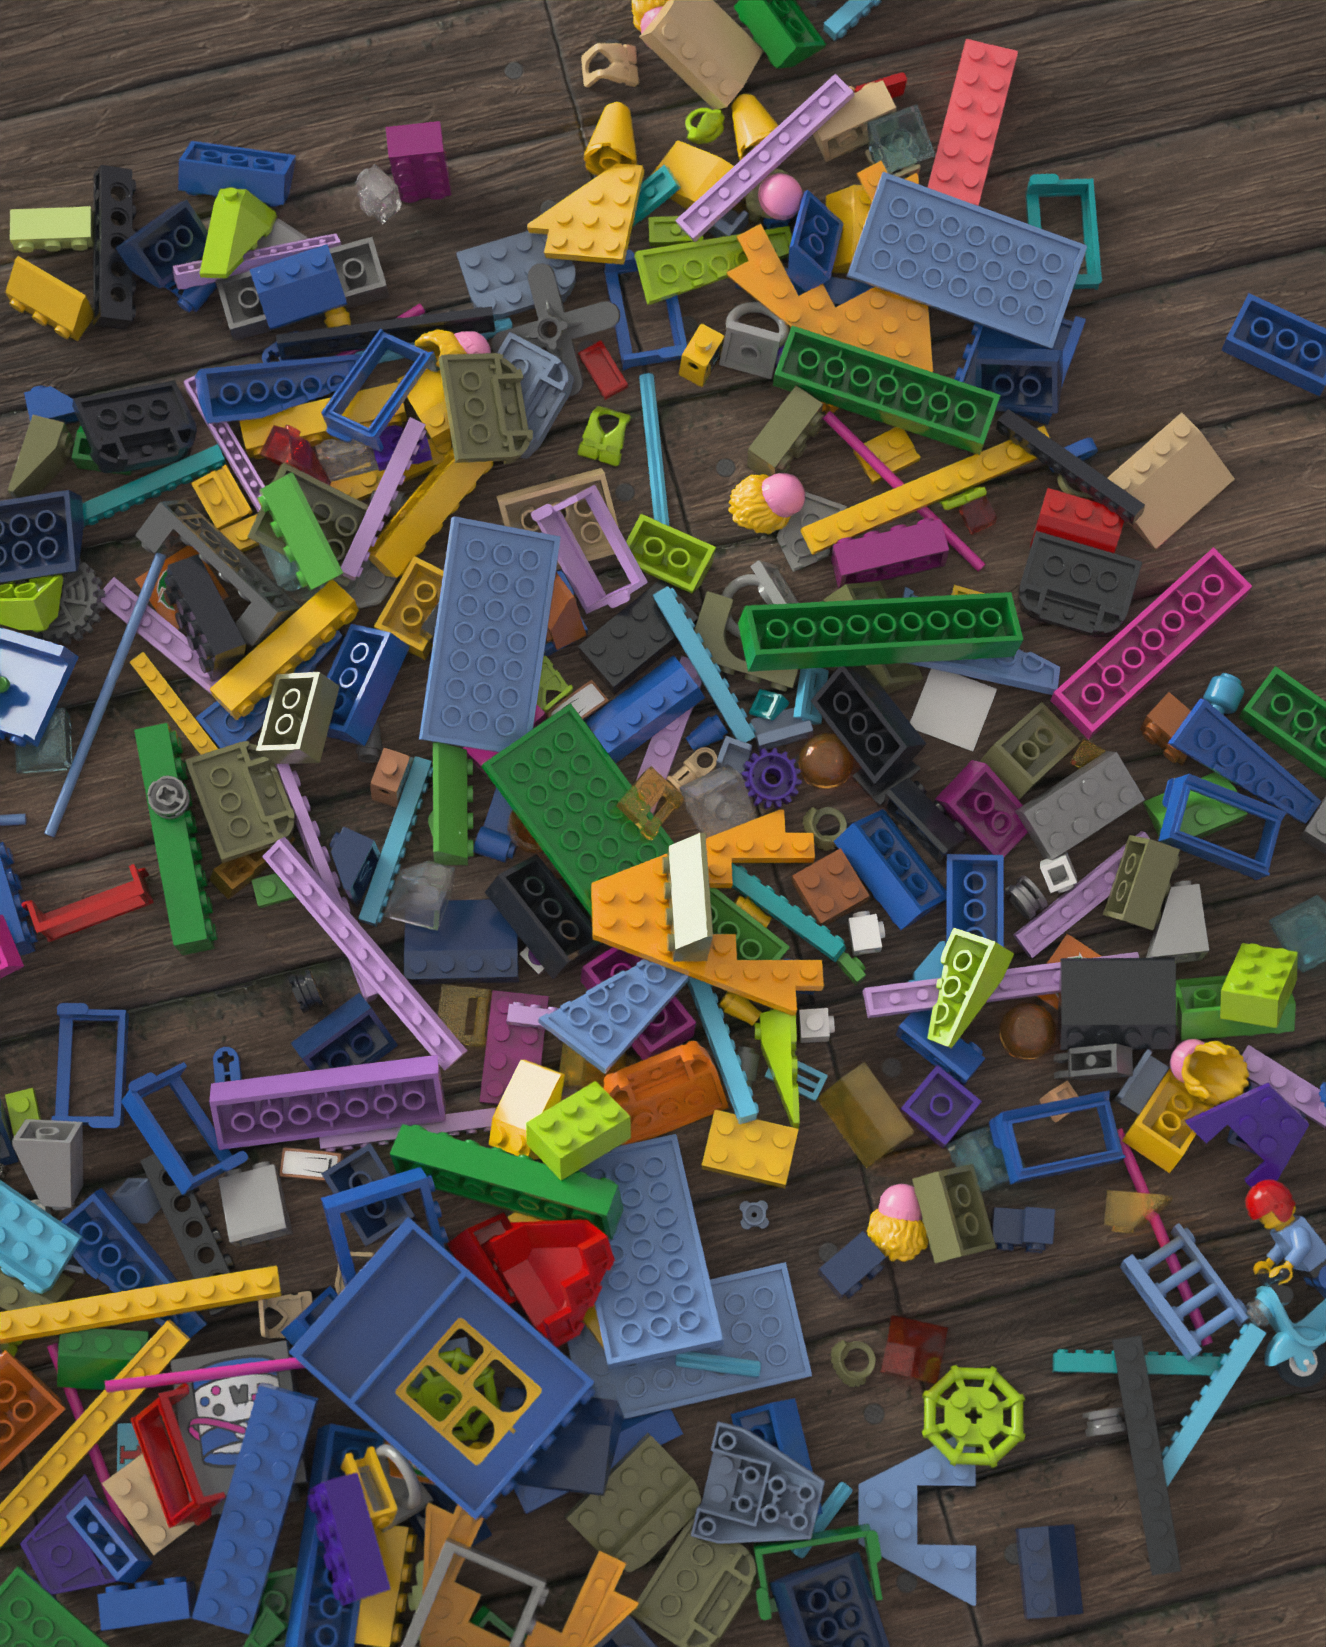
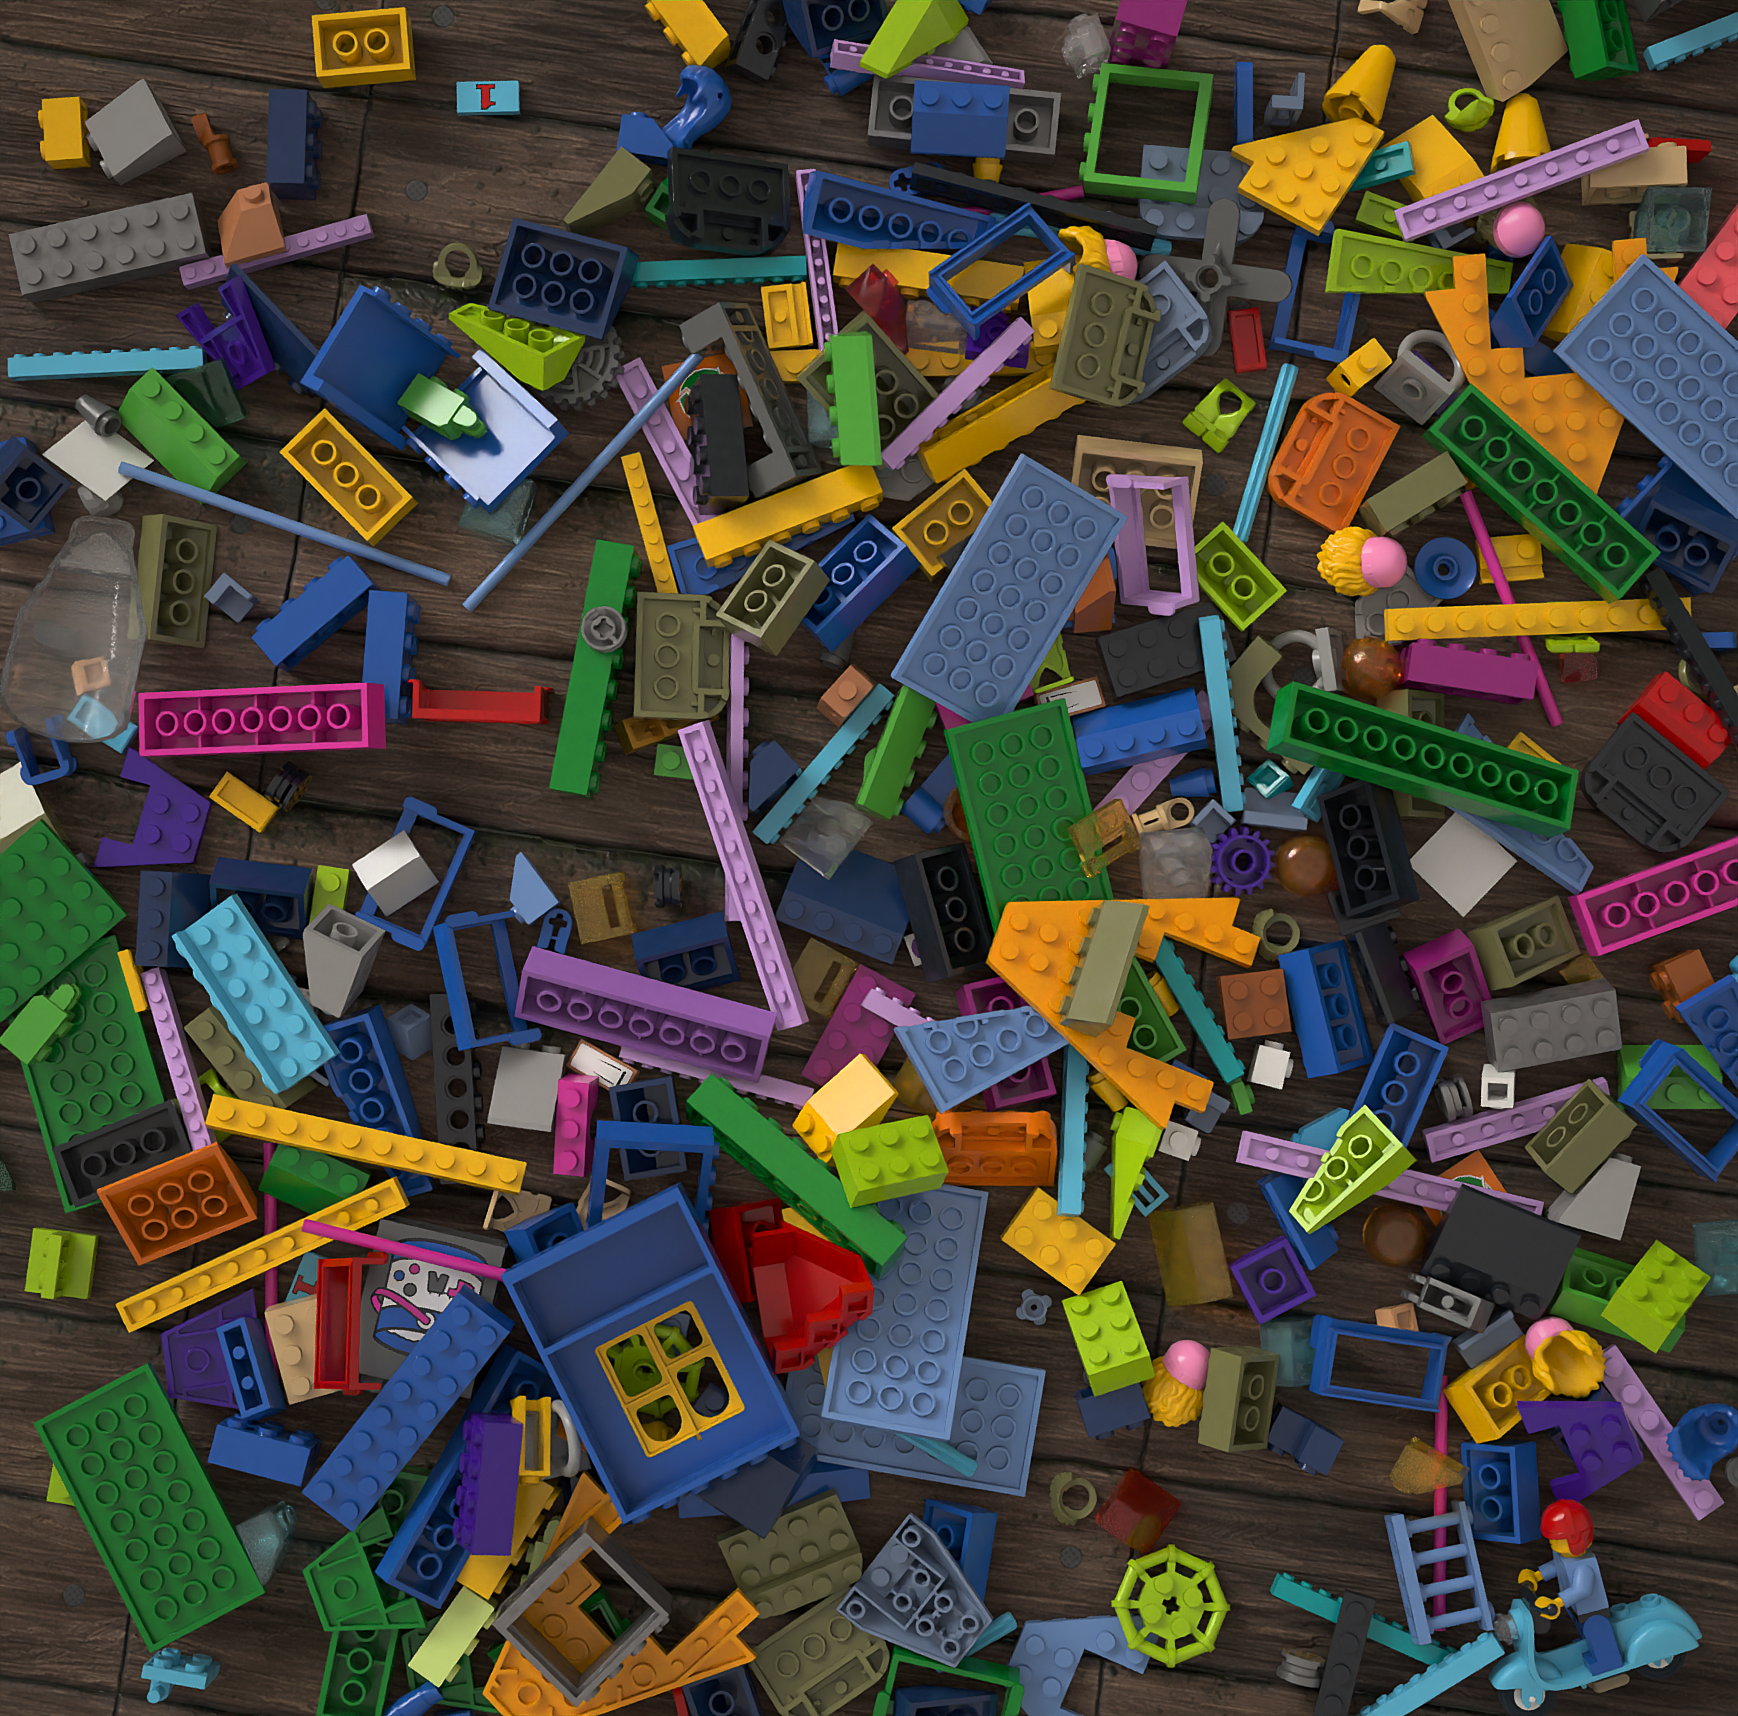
camera: 20 degrees right, 10 degrees up
(73, 1074) = (395, 873): none -> light grey slope
(89, 360) = (704, 109): none -> blue piece
(193, 1044) = (530, 892): none -> medium blue slope
(249, 1036) = (591, 908): none -> clear yellow plate
(299, 1202) = (575, 1104): none -> dark pink arch
(467, 283) = (1138, 187): none -> bright green window
(522, 188) = (1243, 103): none -> blue beam
(556, 178) = (1285, 110): none -> sand blue panel
(708, 434) = (1330, 459): none -> orange plate
(810, 579) = (1371, 668): none -> clear orange cylinder
(824, 1208) = (1108, 1338): none -> lime brick
(831, 994) = (1207, 1119): none -> sand blue panel
(837, 469) = (1459, 564): none -> blue dish
(1207, 1202) = (1502, 1490): none -> blue slope

